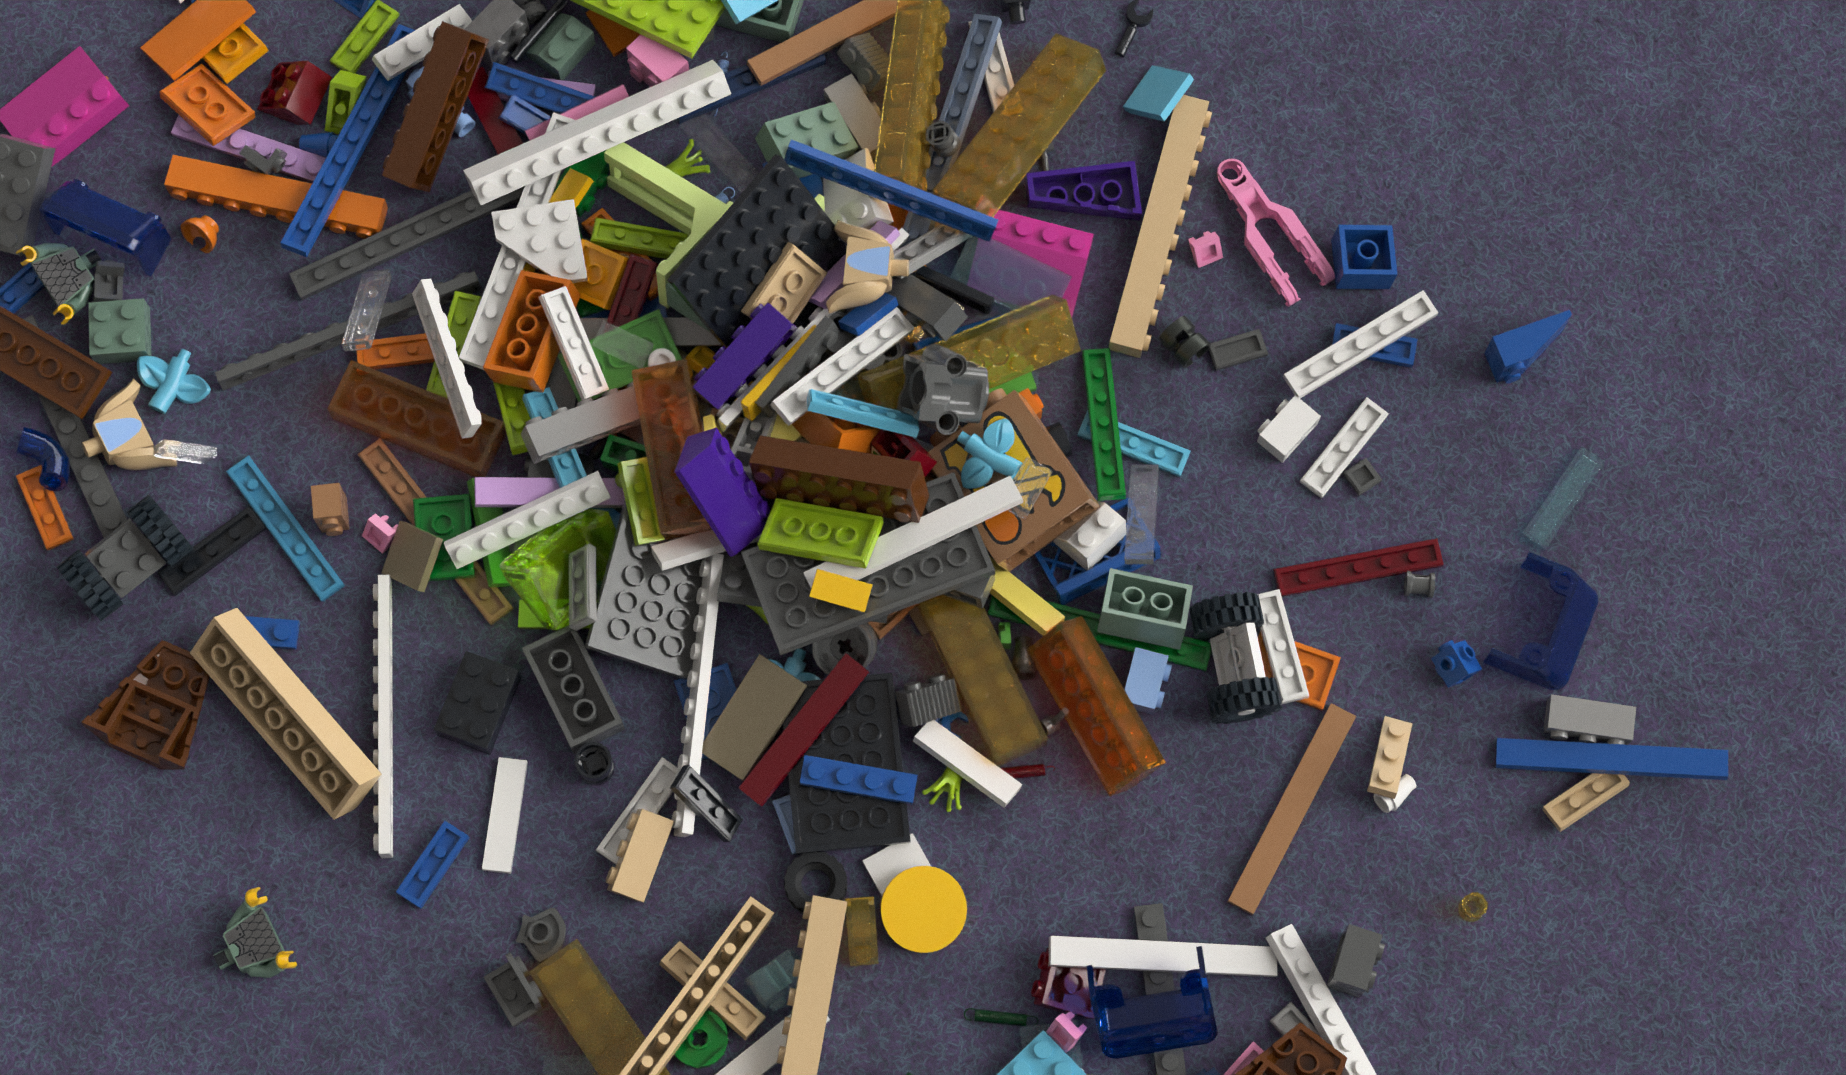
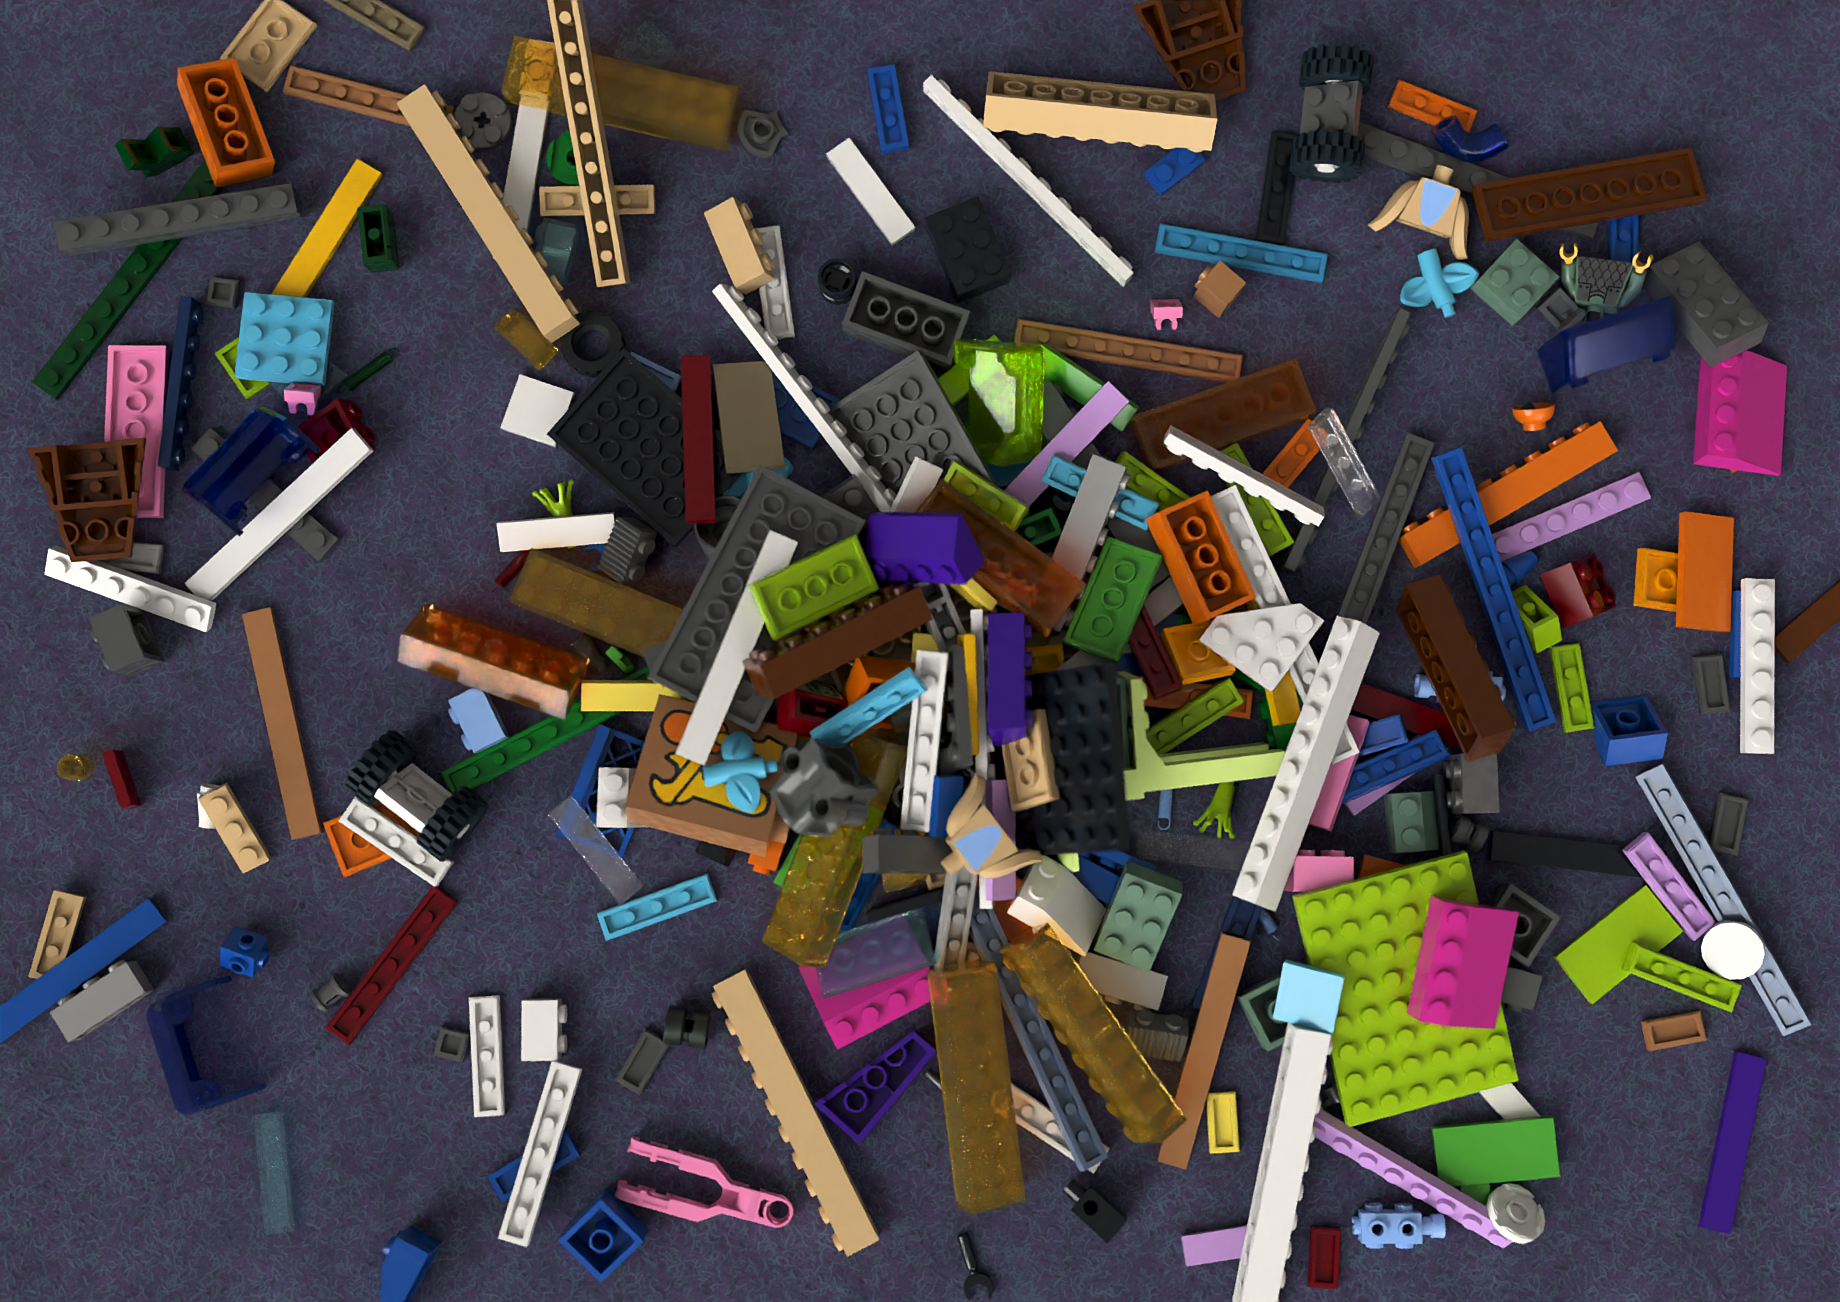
camera: 135 degrees right, 10 degrees up
(185, 451) = (1370, 233): clear tile -> none
(207, 104) = (1634, 518): orange tile -> none
(257, 161) = (1543, 506): dark grey bracket -> none
(412, 556) = (1122, 309): dark tan tile -> none
(416, 45) = (1525, 706): white plate -> none
(446, 519) = (1114, 348): green tile -> none
(513, 992) = (740, 70): dark grey bracket -> none
(527, 520) = (1059, 409): white plate -> none
(573, 343) = (1156, 572): white tile -> none
(582, 587) = (968, 395): light grey tile -> none
(622, 345) = (1117, 607): clear tile -> none
(660, 356) = (1075, 623): white tile -> none
(706, 803) = (723, 322): black tile -> none
(840, 590) = (751, 549): yellow tile -> none
(858, 779) = (624, 441): blue plate -> none
(890, 190) = (1025, 926): blue tile -> none
(923, 909) = (494, 395): yellow tile -> none
(942, 139) = (1022, 1018): dark grey wheel -> none
(1029, 482) = (685, 775): clear tile -> none
(1052, 723) = (523, 623): dark grey hand -> none
(1103, 424) = (690, 897): green tile -> none
(1145, 608) = (523, 773): sand green brick -> none
(1158, 93) = (896, 1226): medium azure tile -> none
(1206, 249) = (740, 1124): bright pink tile -> none
(1445, 867) = (121, 779): none -> dark red tile

